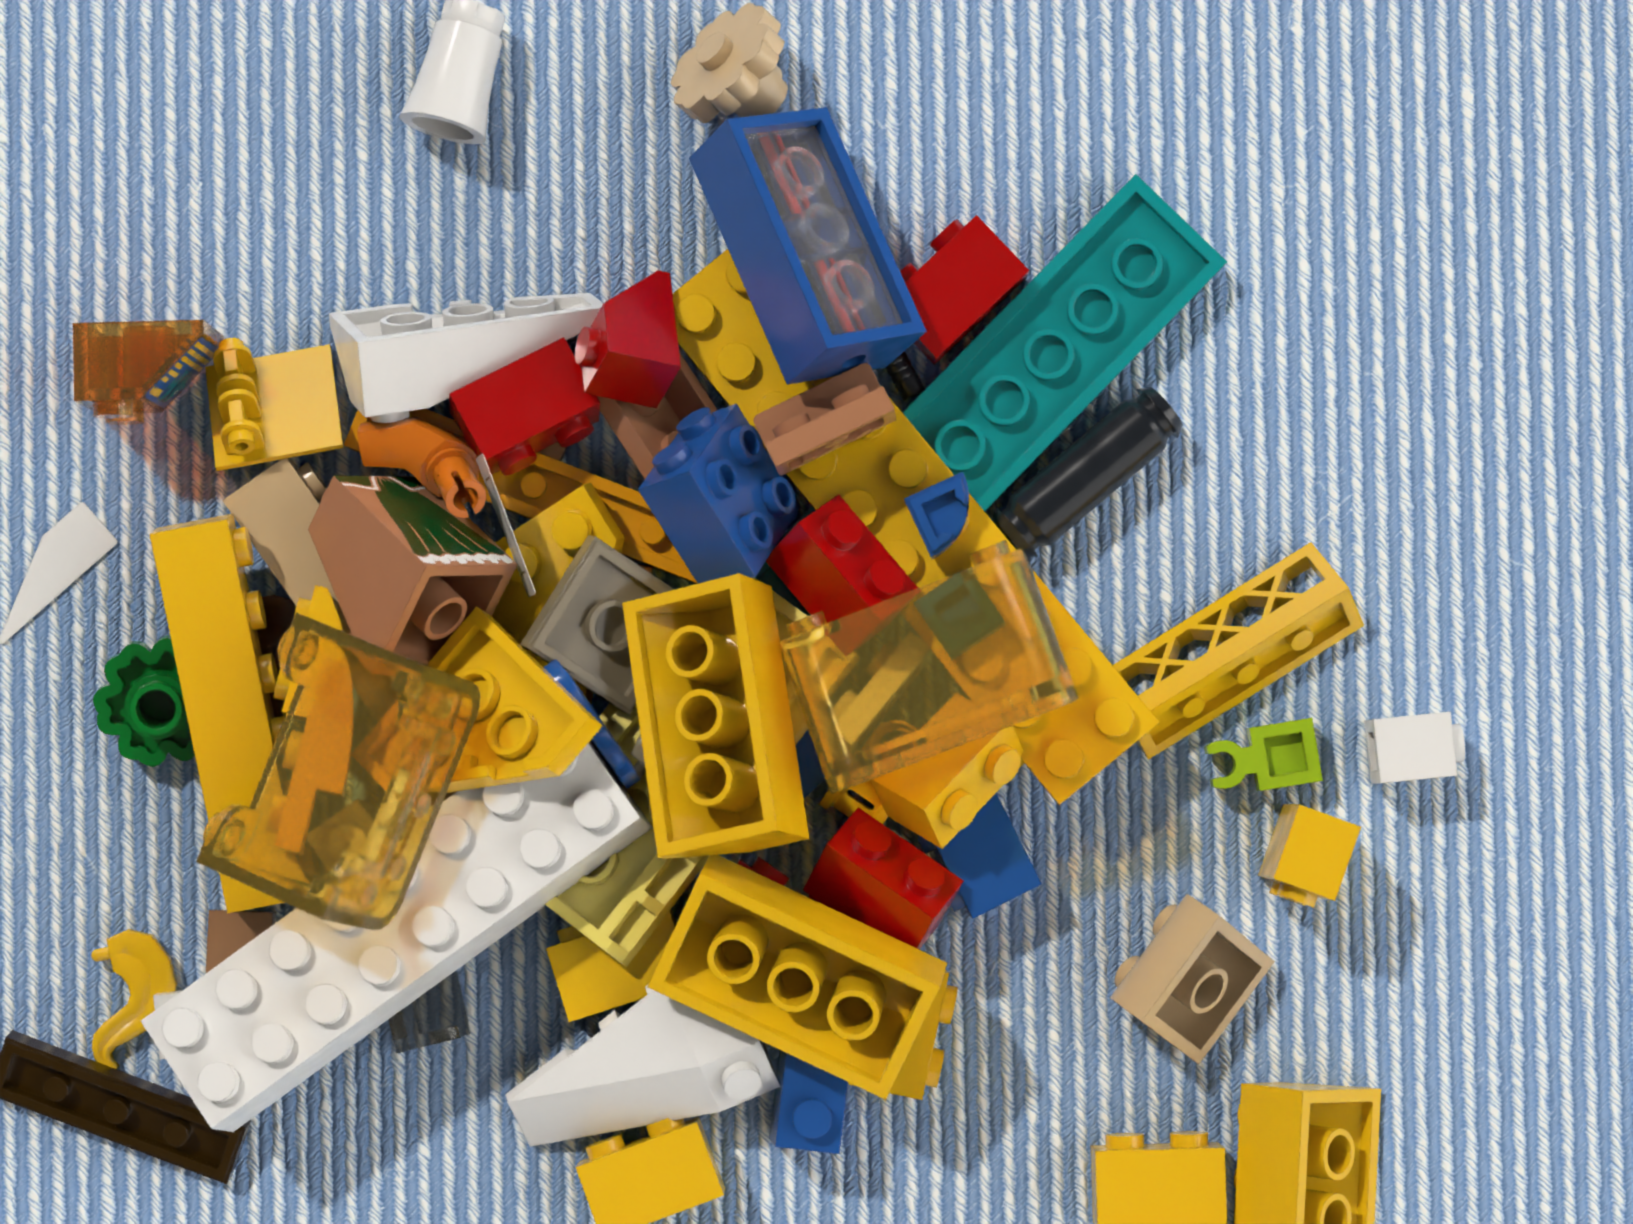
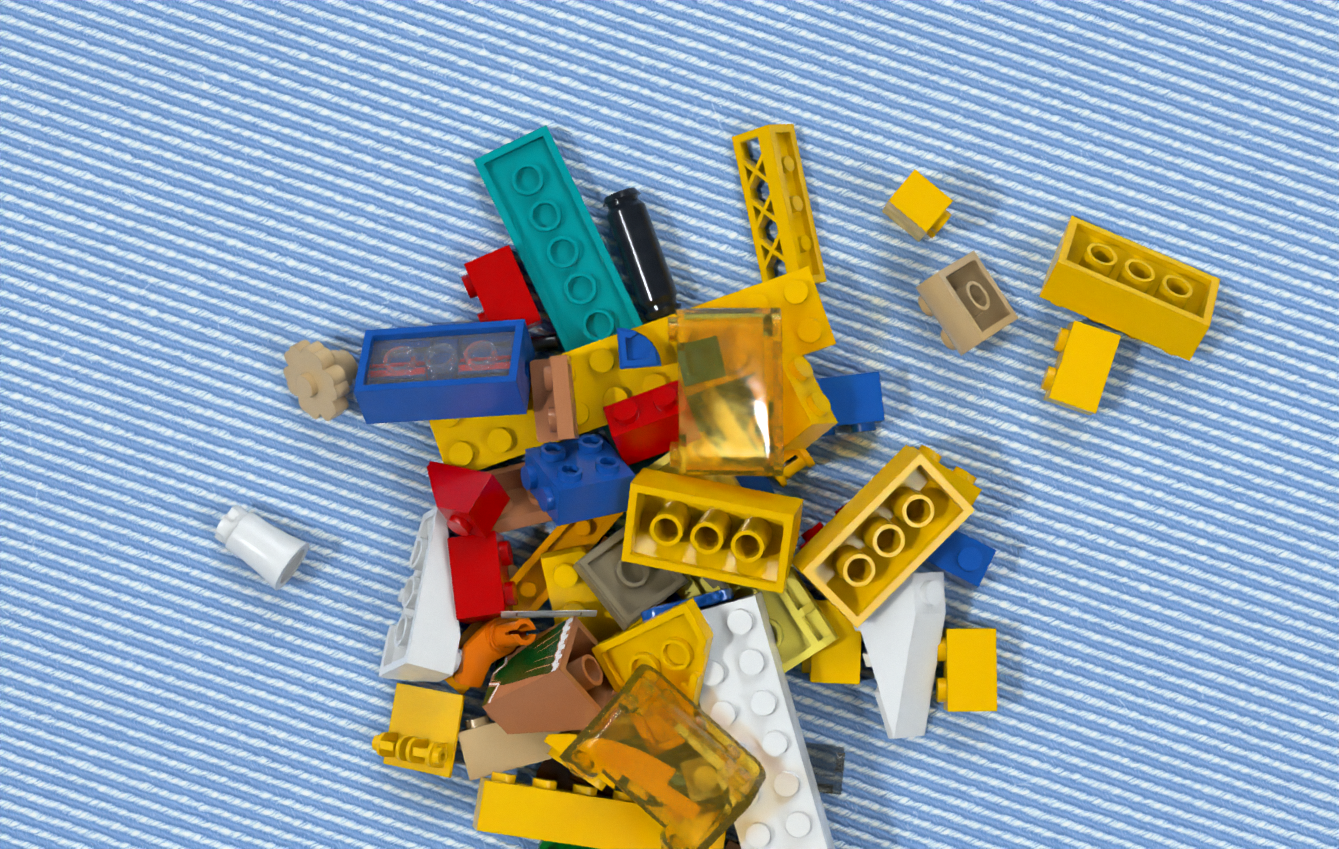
camera: 70 degrees left, 0 degrees up
(138, 365) = (369, 802): clear orange slope -> none
(882, 881) = (843, 465): red brick -> none
(1276, 754) = (851, 204): lime plate -> none
(1413, 747) = (876, 121): white brick -> none

